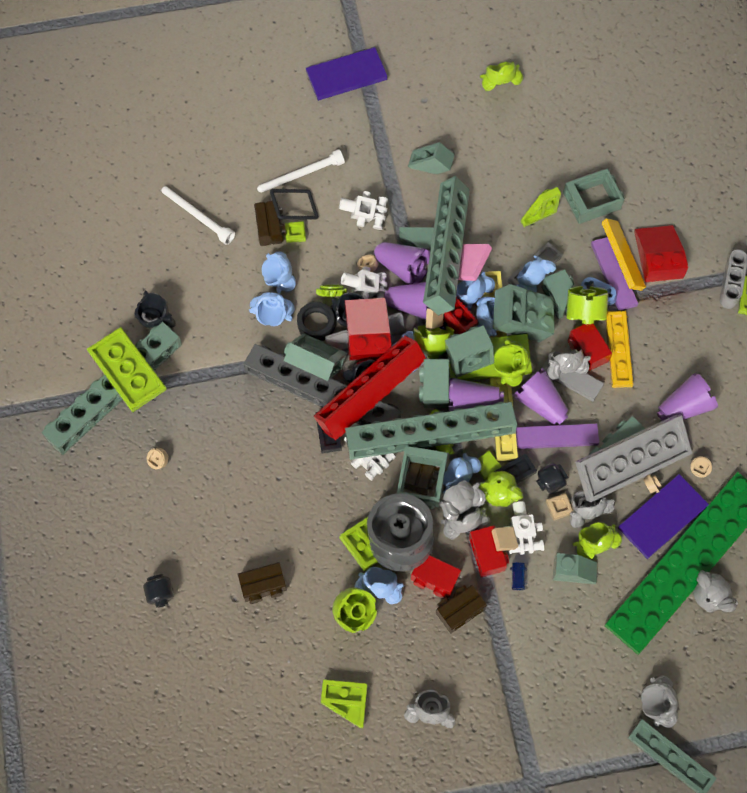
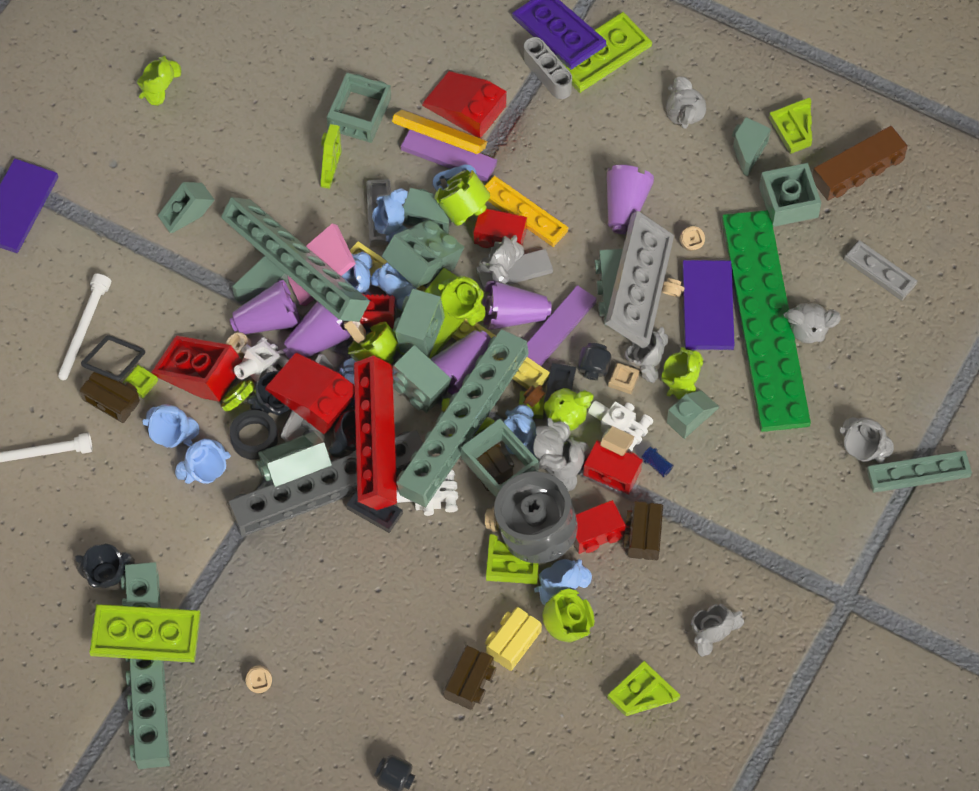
camera: 50 degrees left, 5 degrees down
(312, 587) = (513, 638): none -> light yellow brick
(331, 254) = (198, 367): none -> red slope
(364, 209) = (182, 301): white piece -> none
(490, 461) = (533, 395): none -> reddish brown plate

